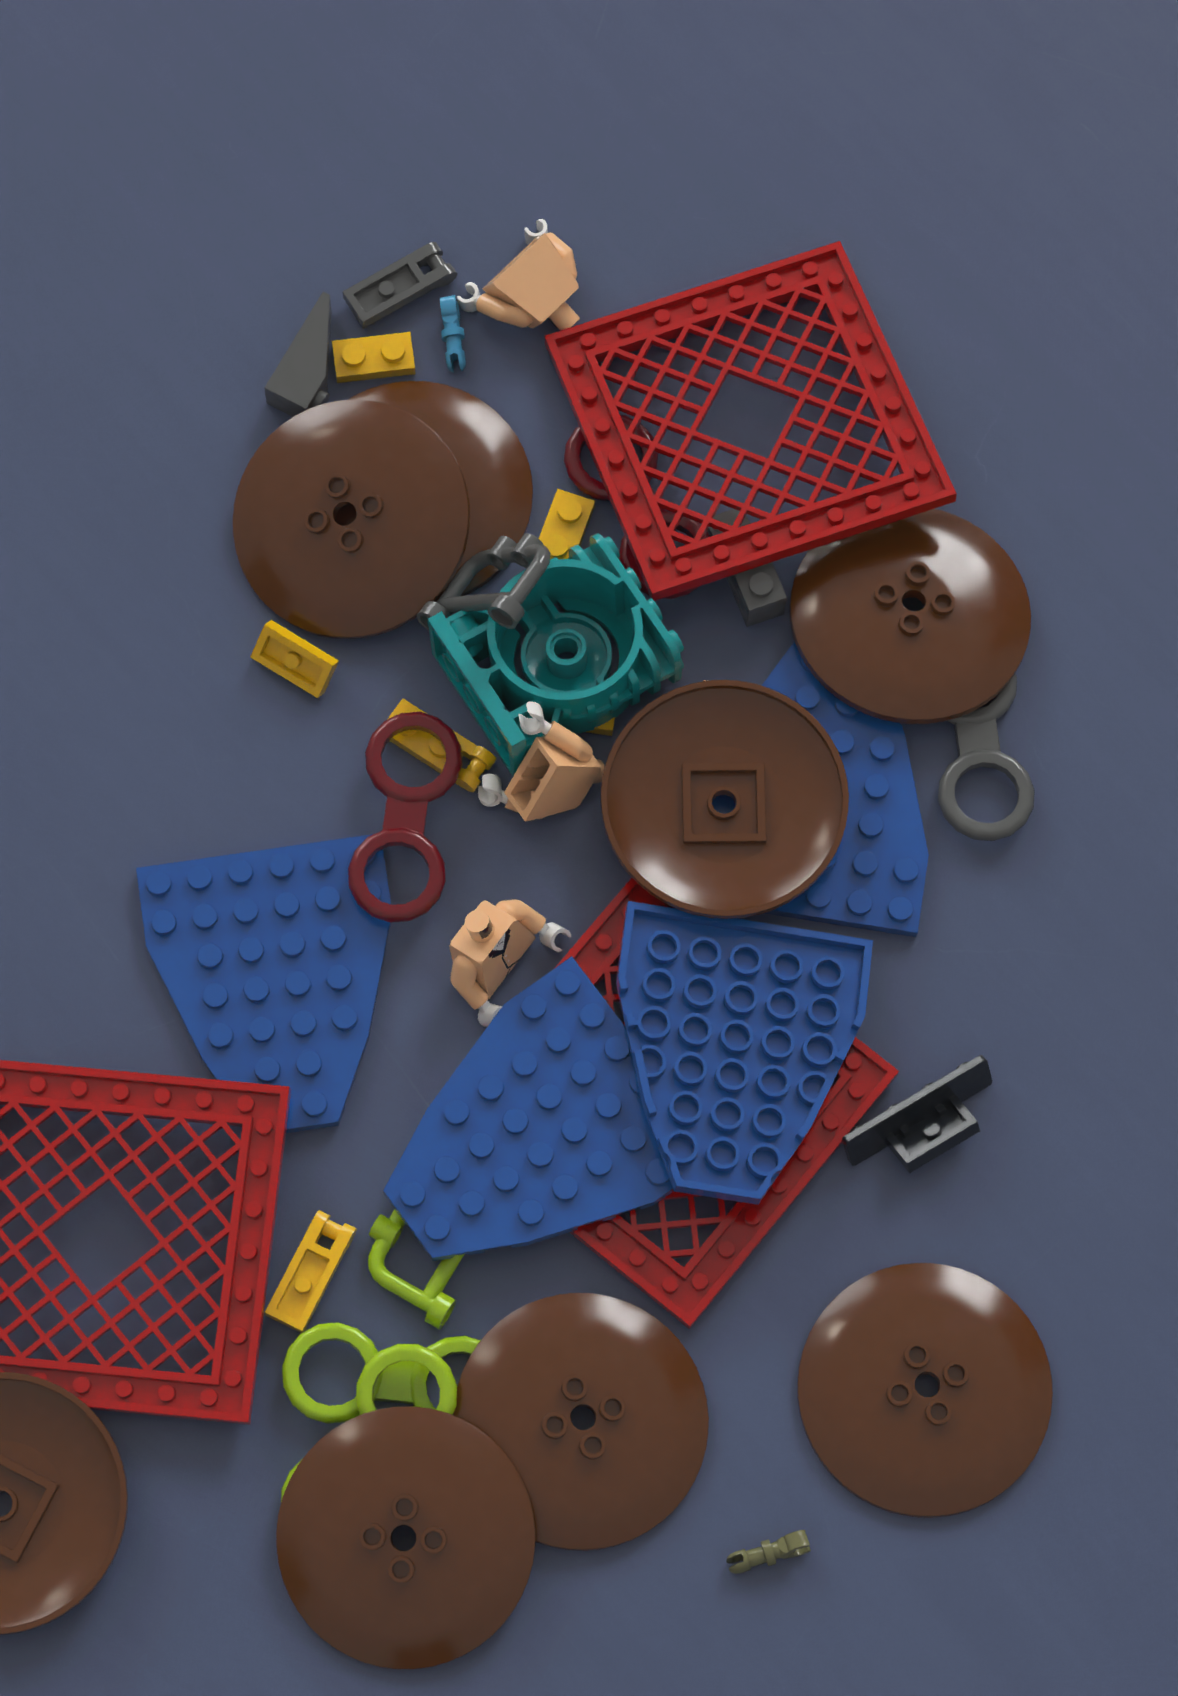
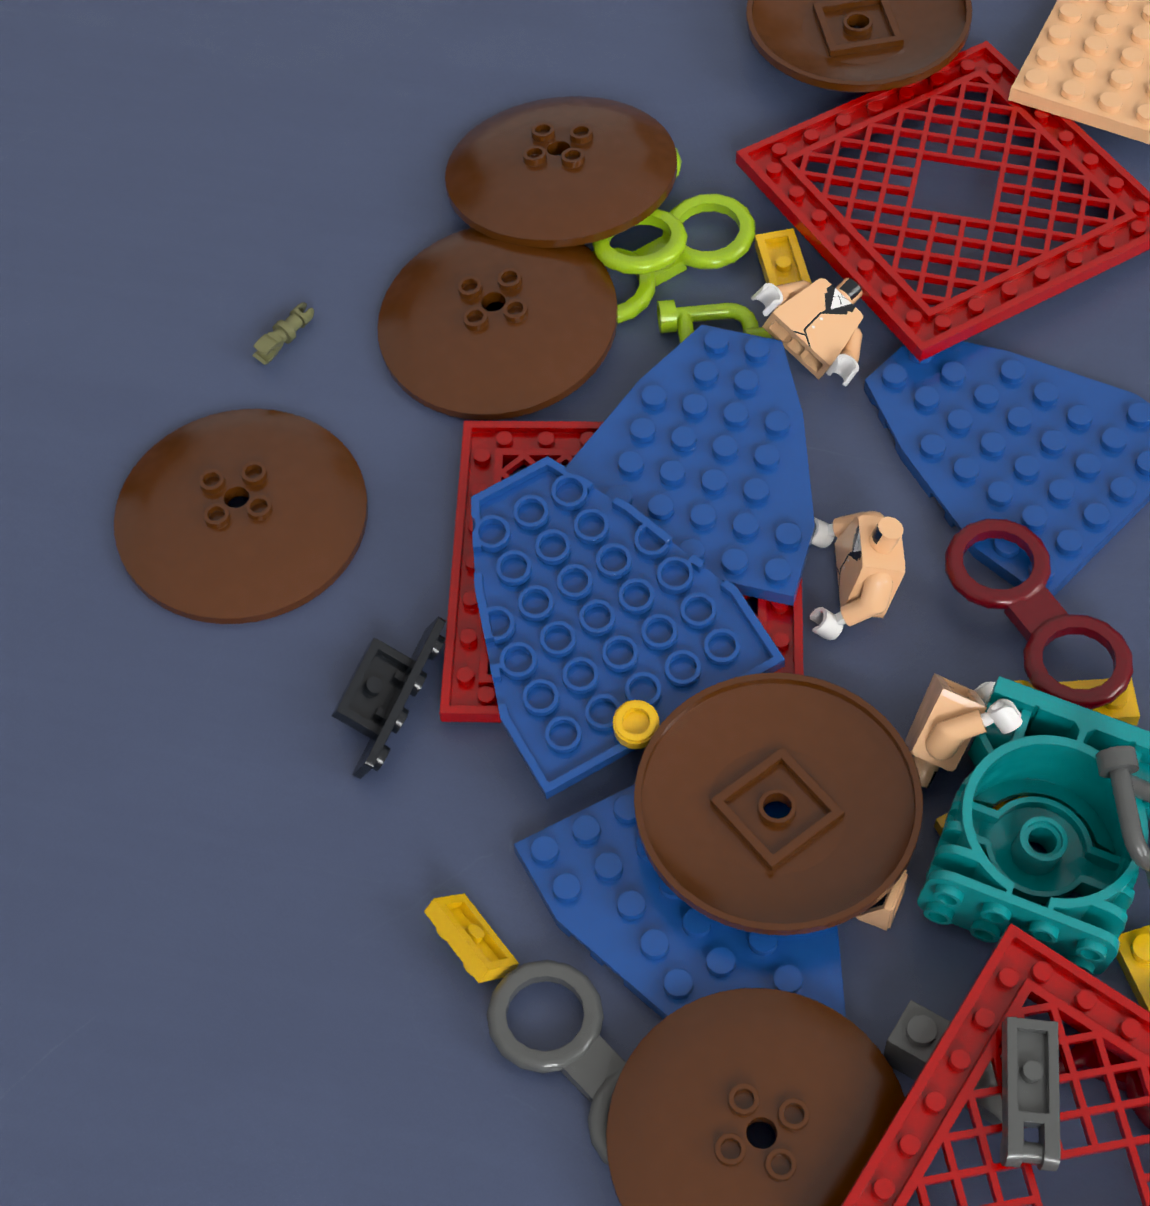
camera: 150 degrees right, 15 degrees down
(340, 1182) = (816, 324): none -> light nougat torso
(736, 487) = (1030, 1093): none -> dark grey plate
(774, 932) = (635, 723): none -> yellow tile
(997, 883) = (470, 937): none -> yellow plate

